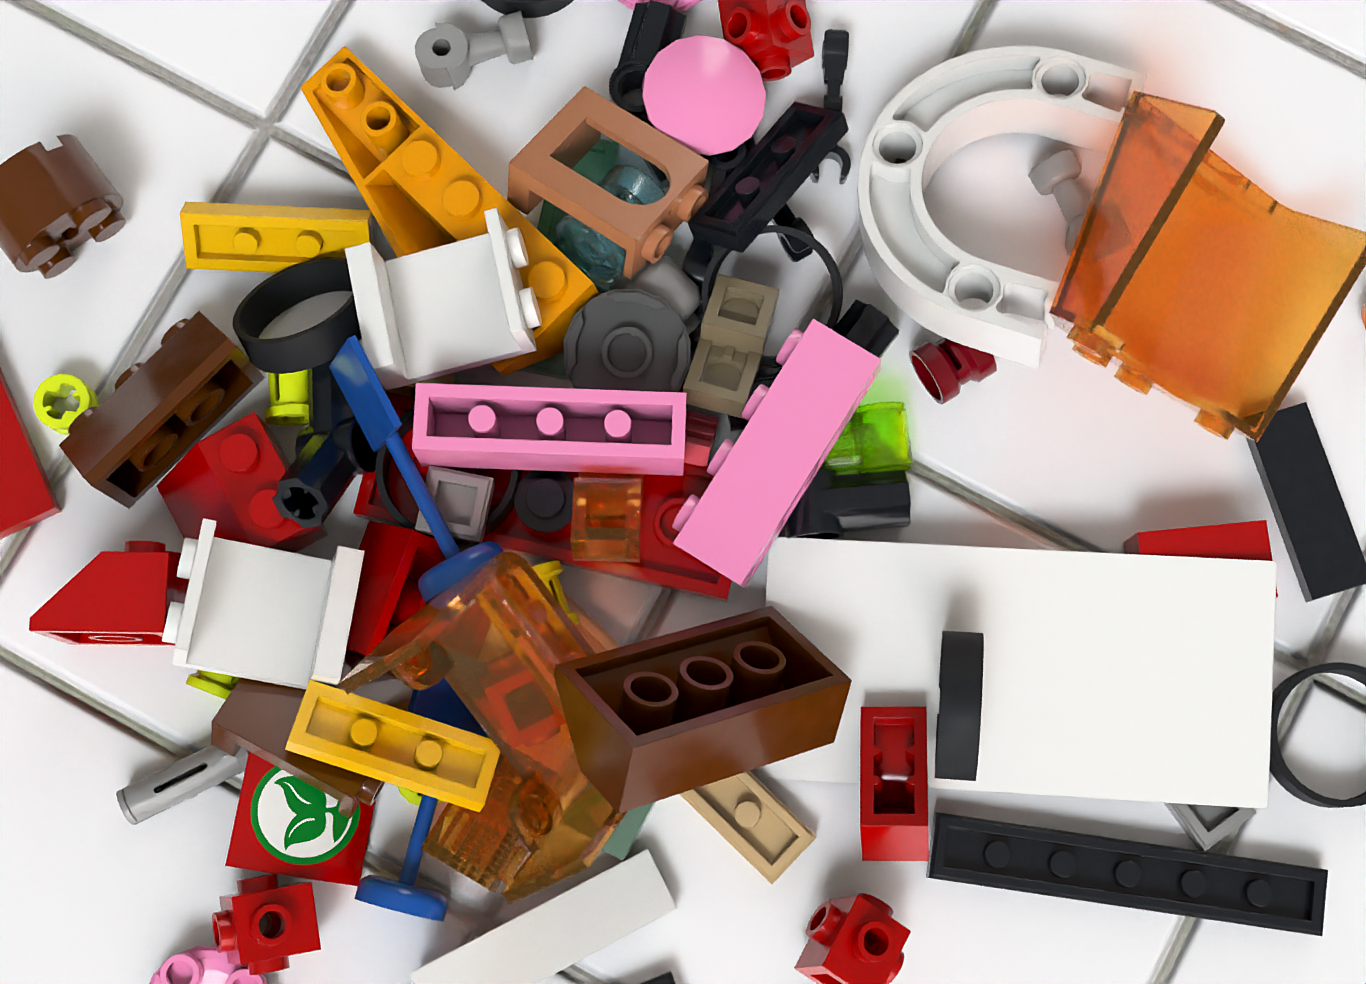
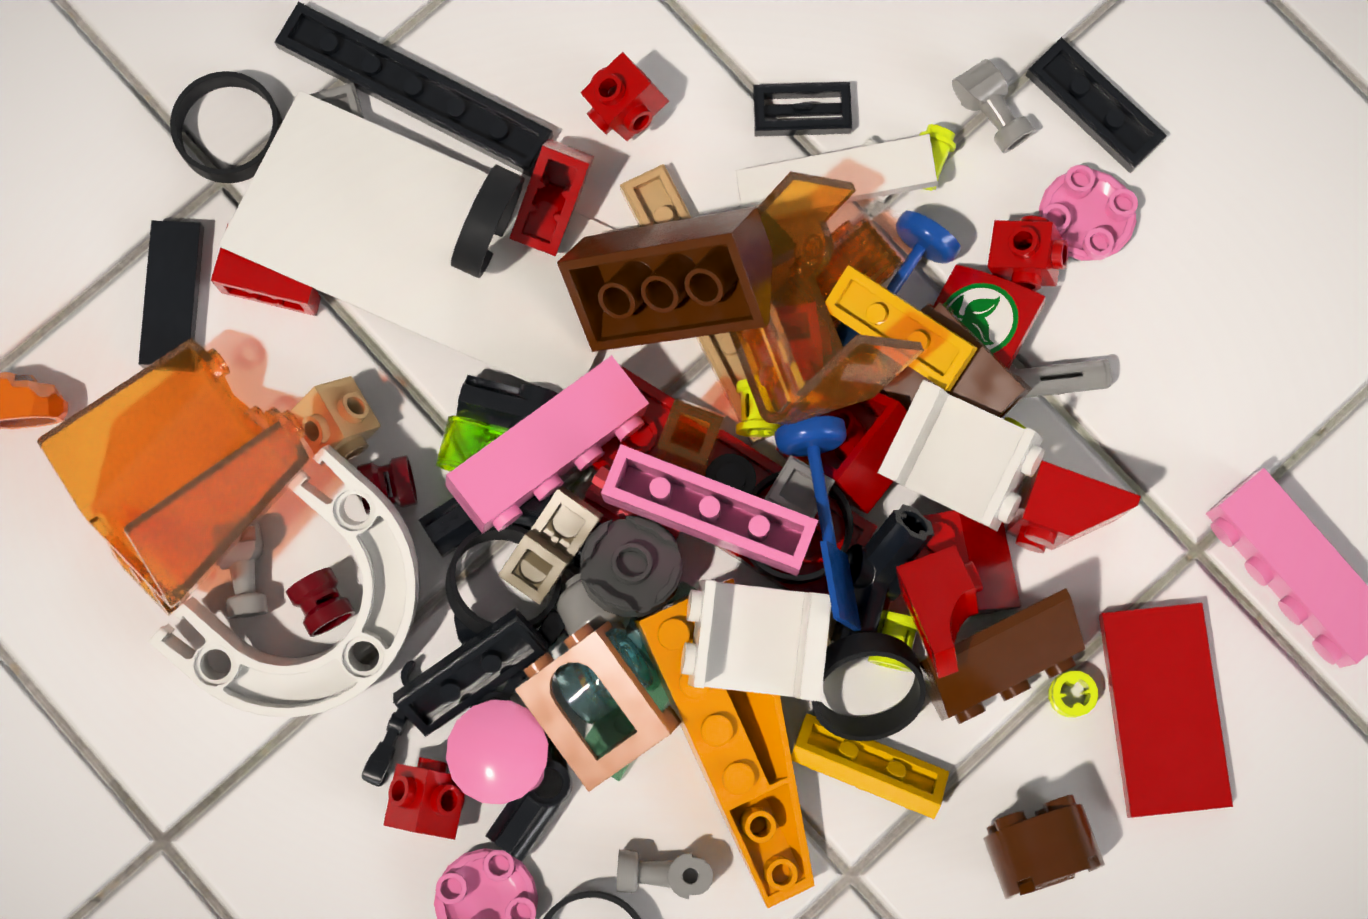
camera: 165 degrees left, 0 degrees up
(242, 418) = (940, 598): none -> red arch
(985, 210) = (320, 602): none -> dark red wheel
(1043, 410) = (336, 417): none -> tan brick

